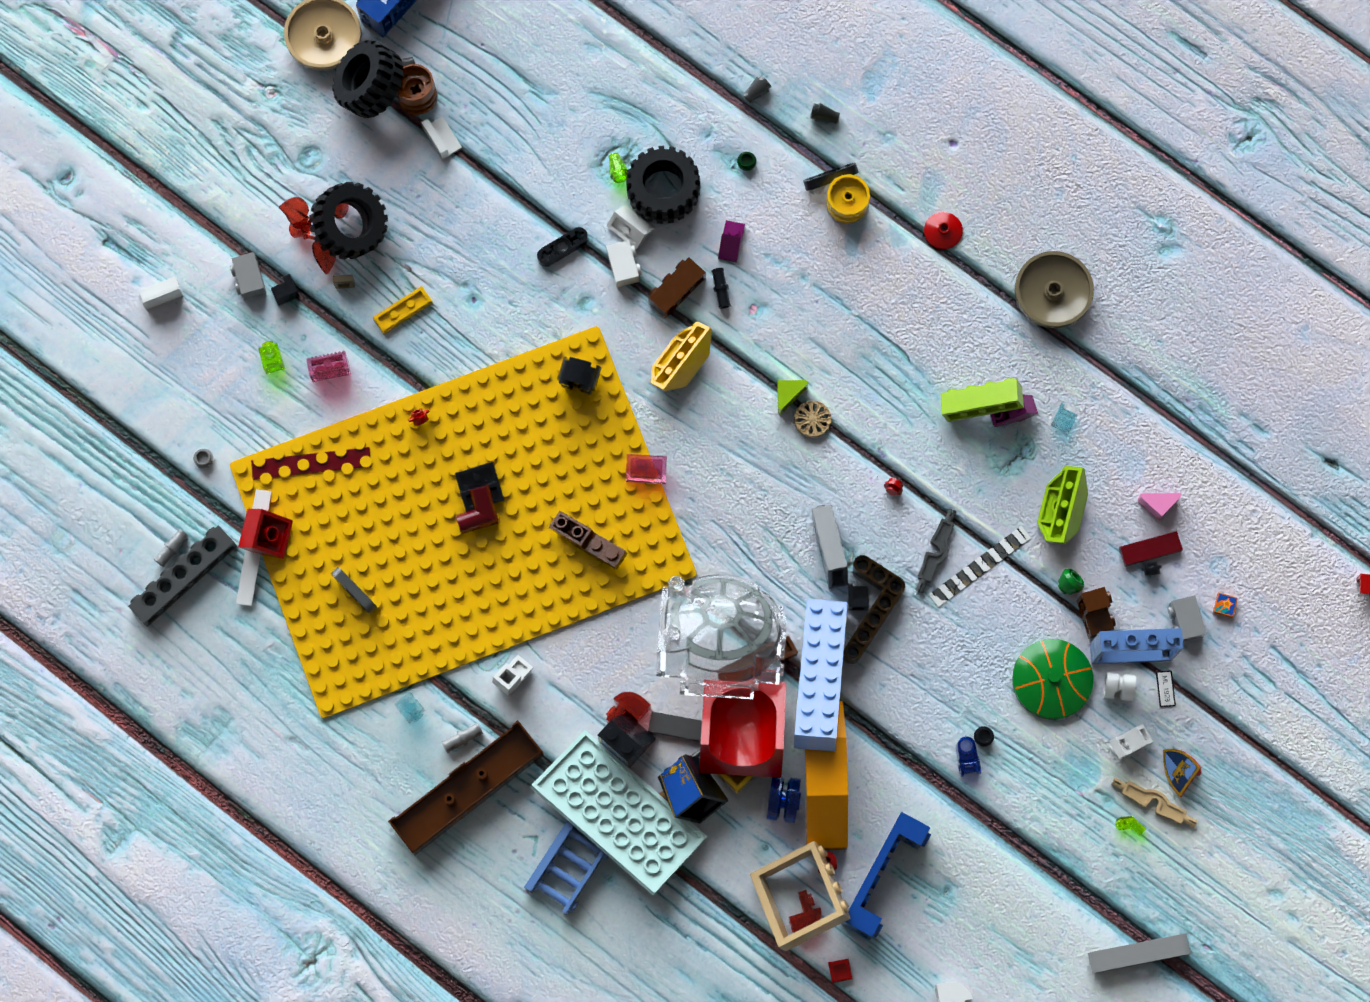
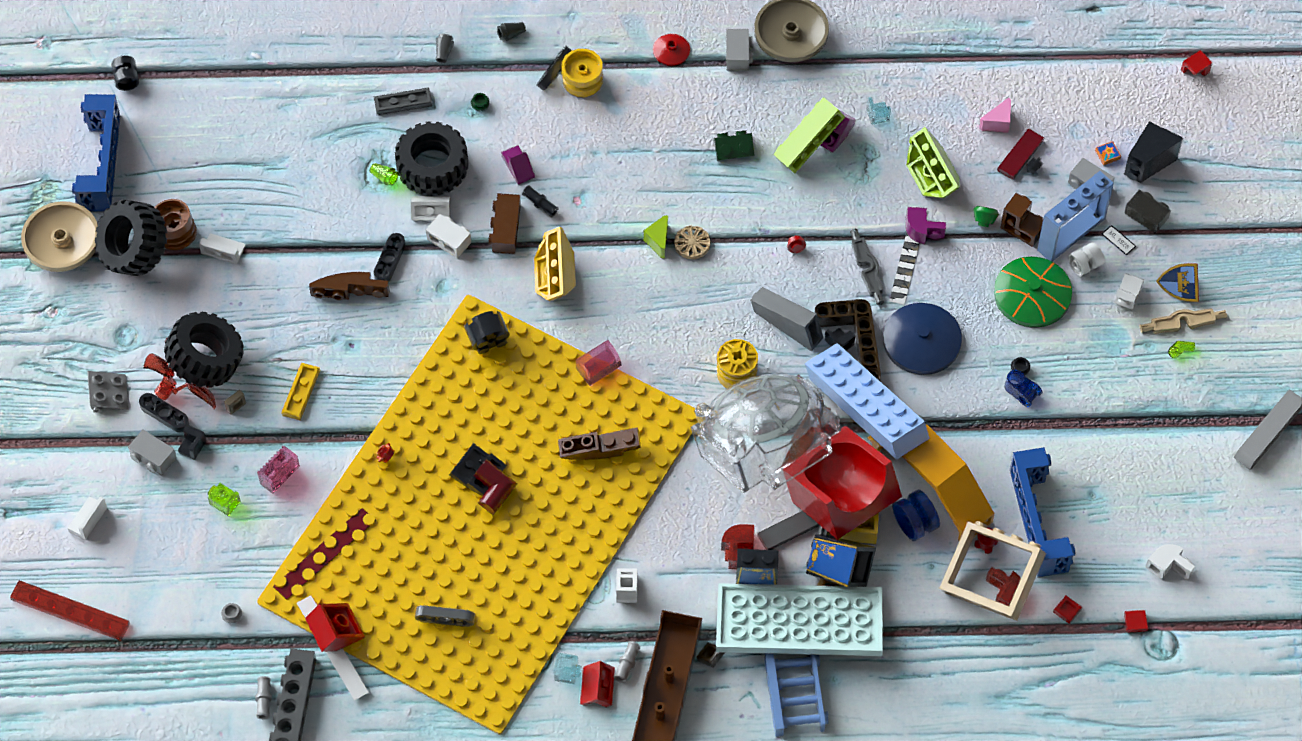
camera: 40 degrees left, 15 degrees down
(89, 361) = (70, 610): none -> clear red tile
(257, 196) = (107, 391): none -> light grey hinge
(284, 262) = (159, 405): none -> black beam
(425, 738) = (597, 684): none -> red panel
(506, 243) = (342, 284): none -> reddish brown slope
(526, 781) = (709, 655): none -> dark brown tile
(686, 112) = (402, 101): none -> dark grey tile
(748, 566) = (736, 362): none -> yellow wheel
(918, 358) = (733, 146): none -> dark green bracket
(926, 648) = (922, 338): none -> dark blue dish
(995, 273) = (737, 49): none -> light grey brick
(1006, 548) = (919, 228): none -> magenta brick
(1210, 683) = (1147, 210): none -> clear smoke brick
(1257, 636) = (1152, 152): none -> black slope

